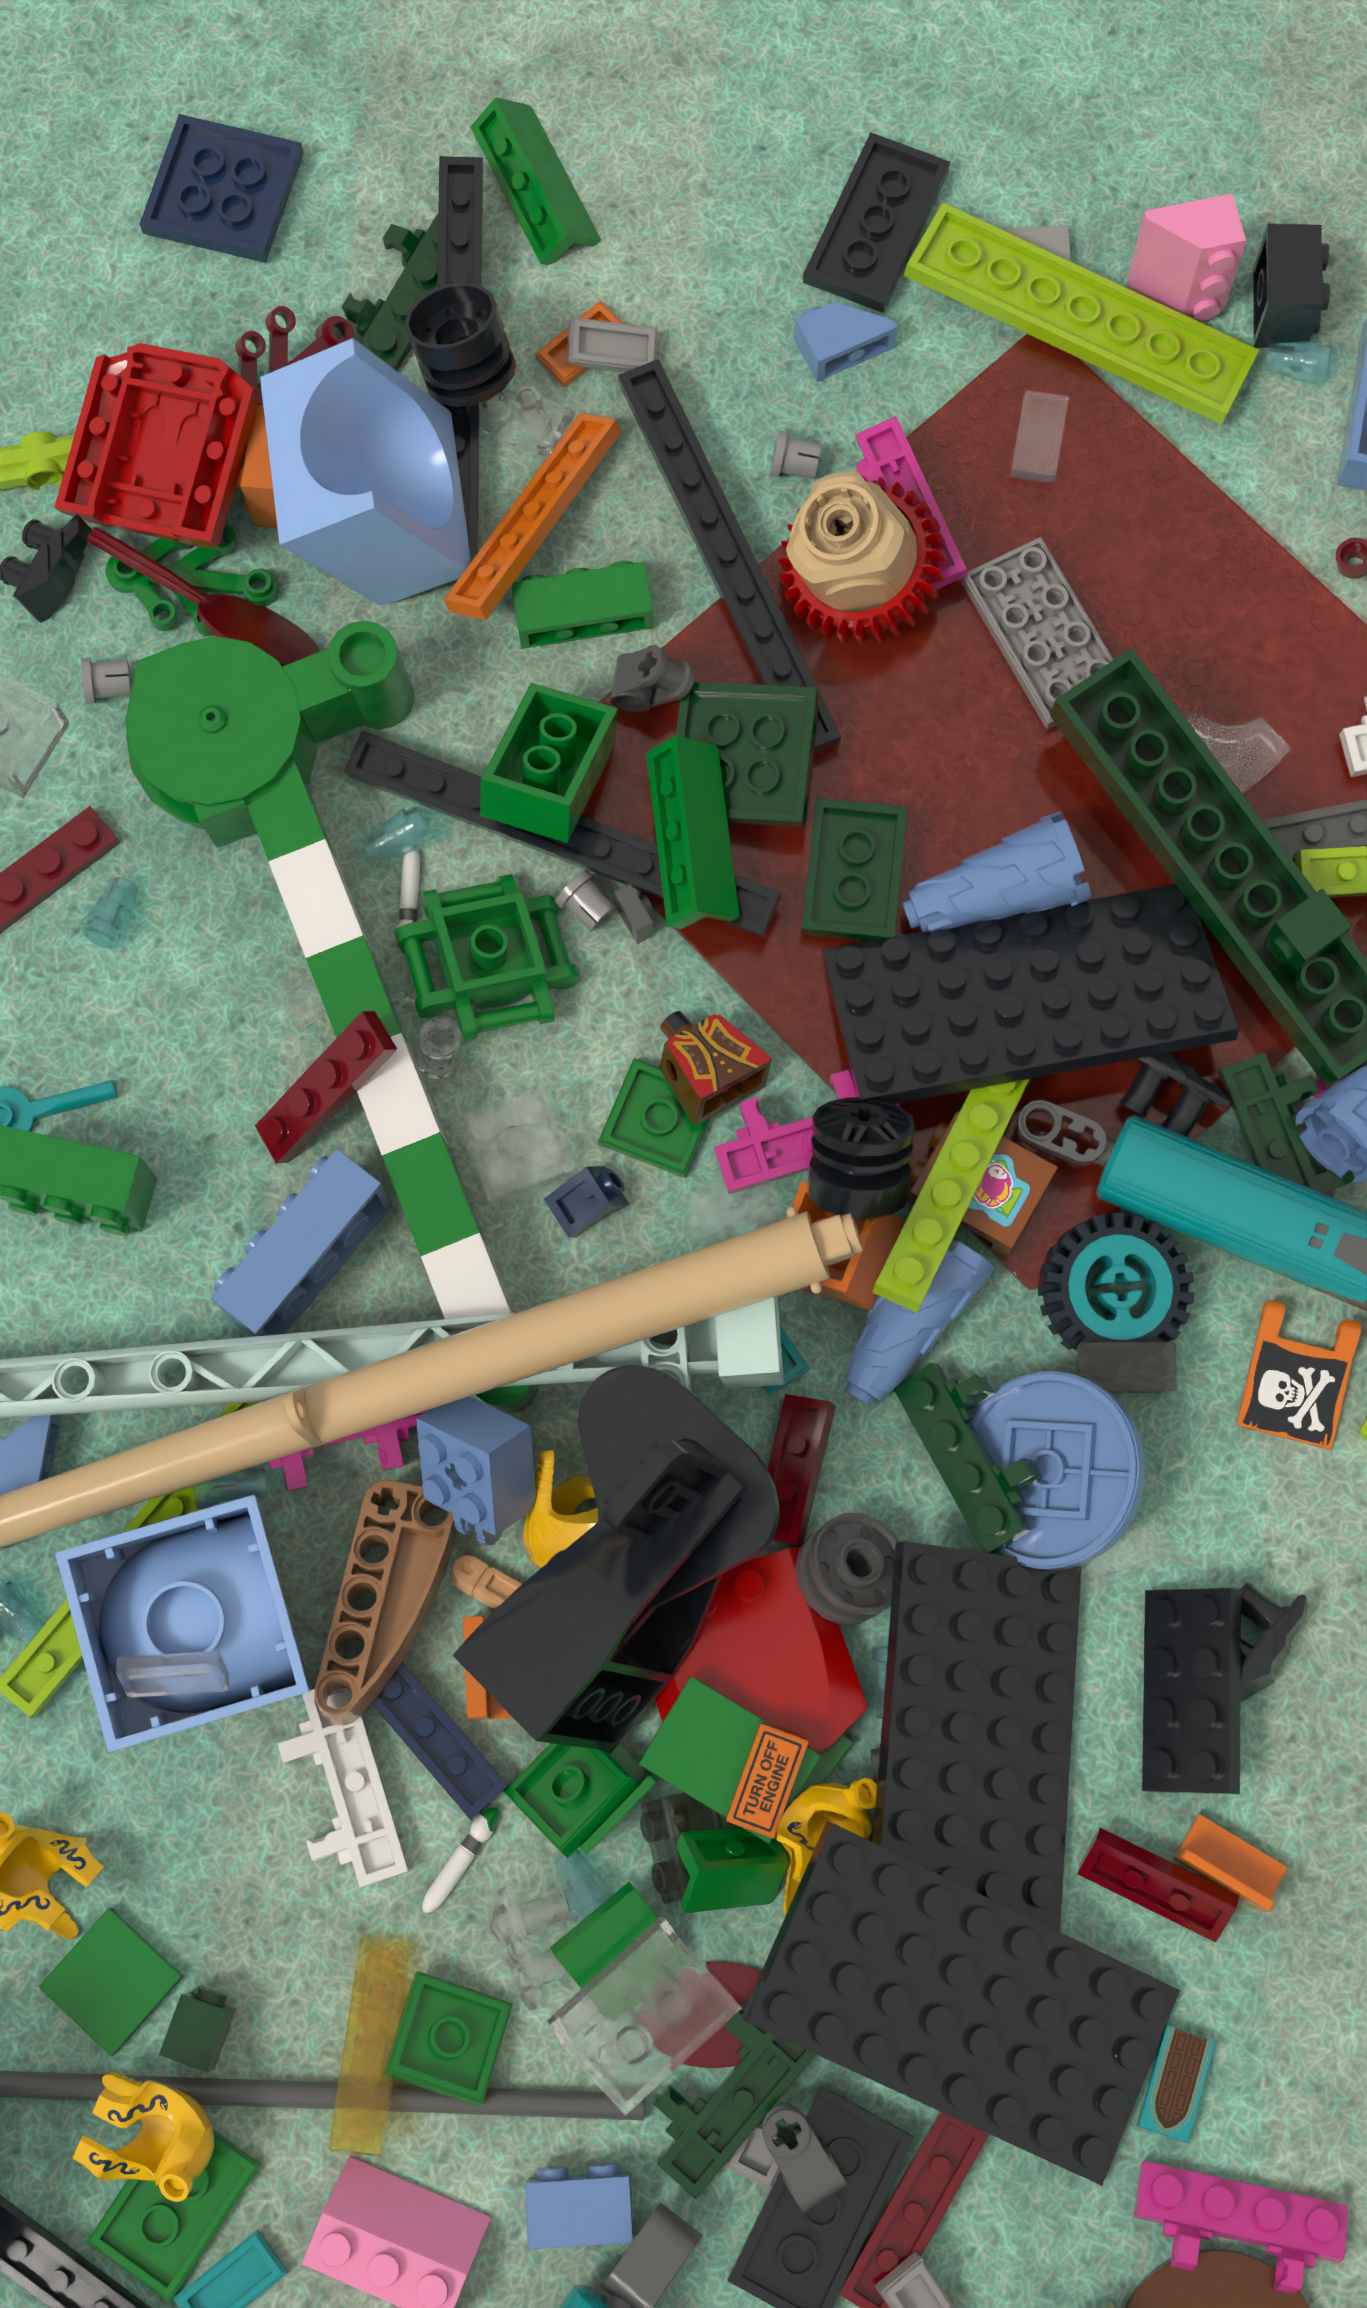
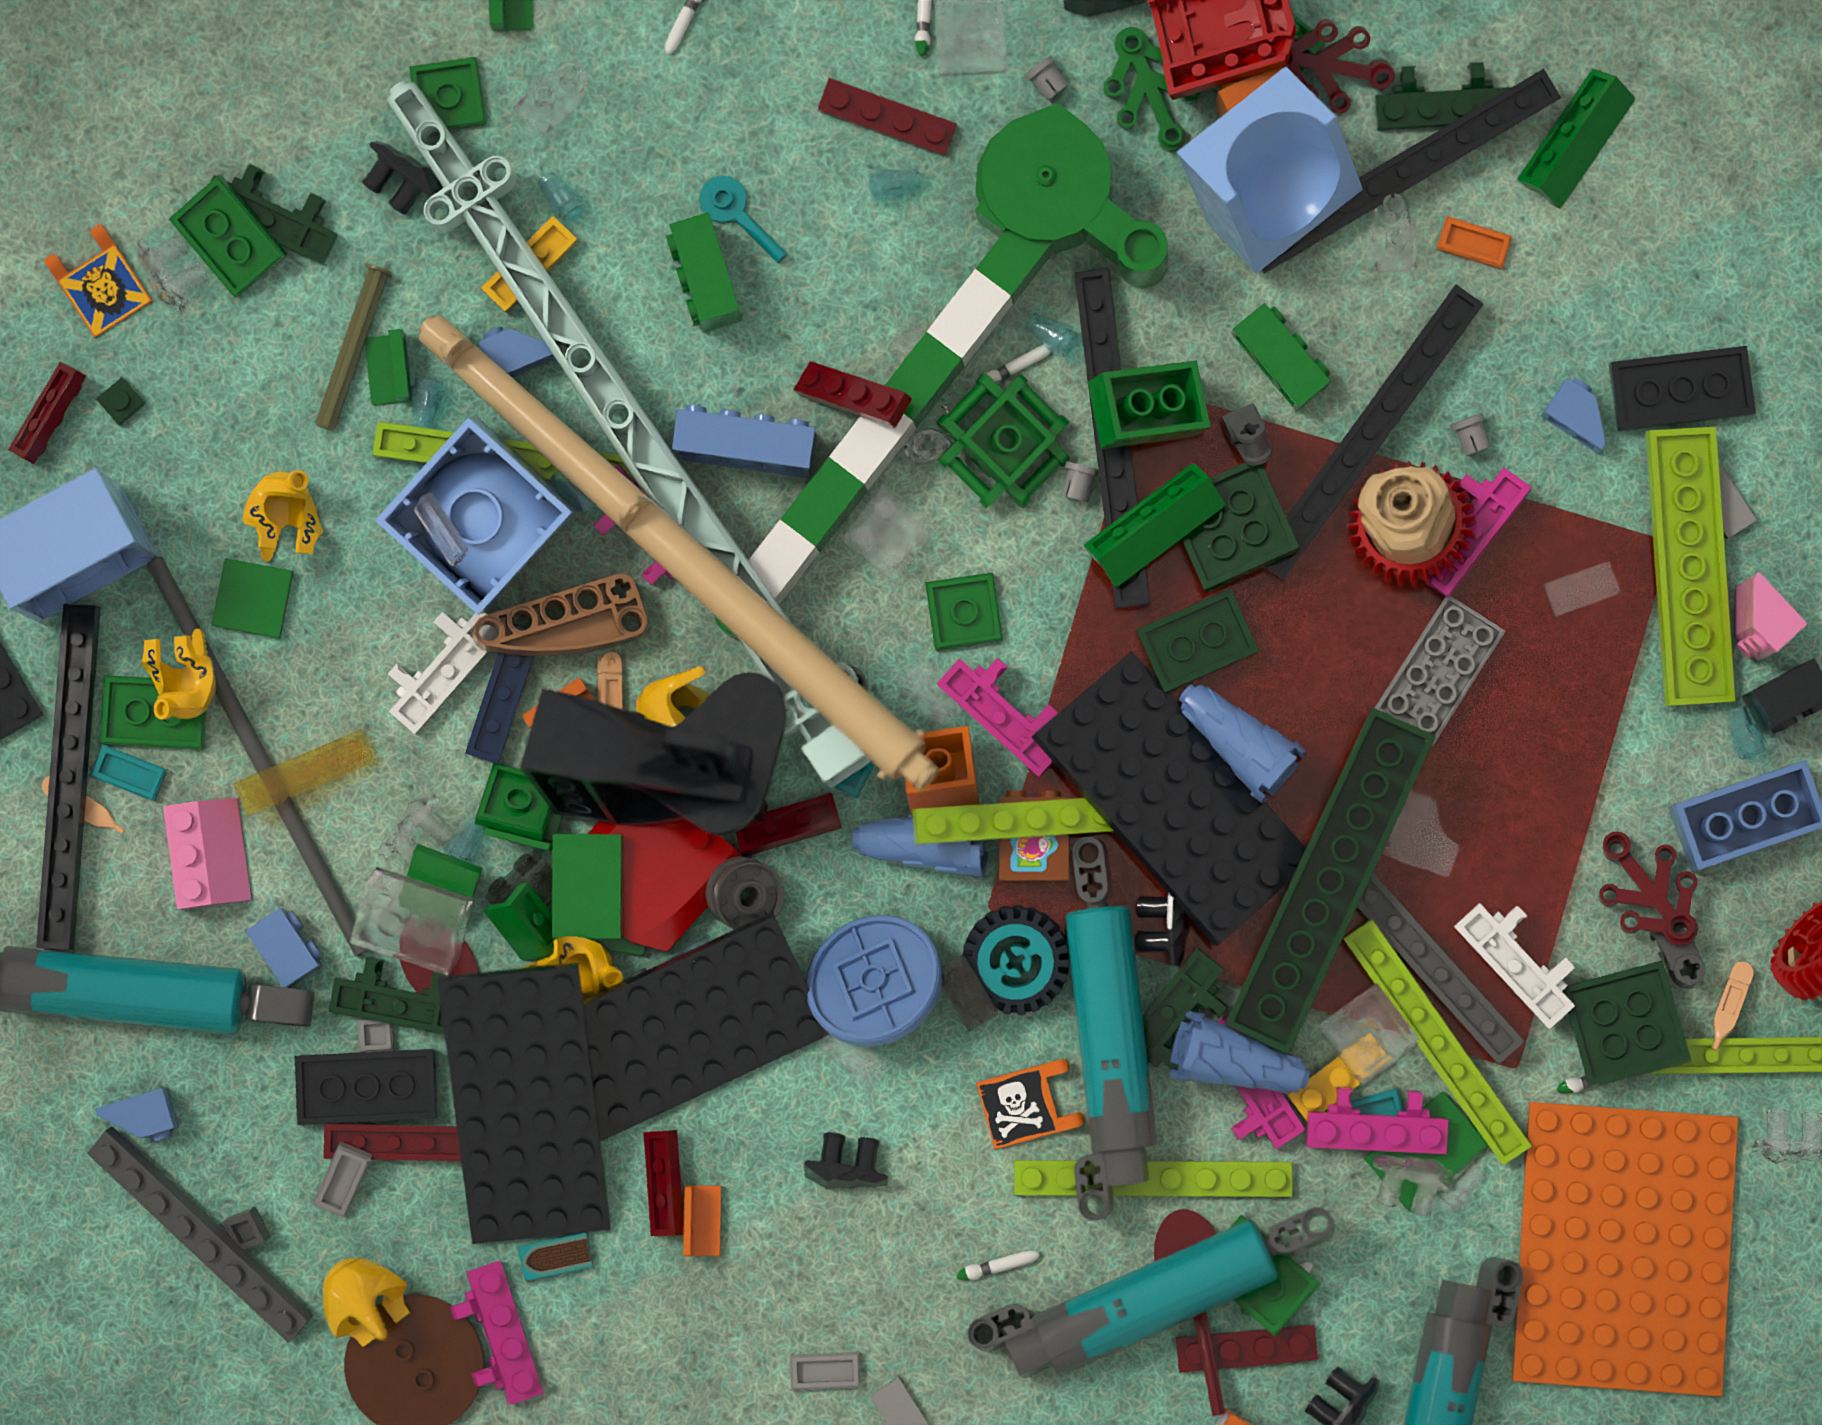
camera: 60 degrees right, 10 degrees up
(198, 2029) = (255, 666): dark green brick -> none
(220, 613) = (1134, 141): dark red piece -> none
(448, 2039) = (334, 815): green tile -> none
(460, 344) = (1402, 172): black wheel -> none
(460, 1860) = (440, 761): white piece -> none
(477, 1466) = (669, 633): medium blue hinge -> none
(532, 516) = (1321, 288): orange plate -> none
(586, 1199) = (883, 597): dark blue bracket -> none
(609, 345) = (1480, 264): light grey tile -> none
(635, 912) = (1089, 517): dark grey plate -> none
(710, 1064) = (1013, 623): torso -> none
(767, 1780) = (586, 915): orange tile -> none
(805, 2162) = (383, 1063): dark grey piece -> none
(861, 1157) = (996, 754): black wheel -> none
(979, 1487) = (840, 943): dark green hinge -> none
(1192, 1691) = (790, 1140): black plate -> none
(1308, 930) = (1304, 951): dark green brick -> none

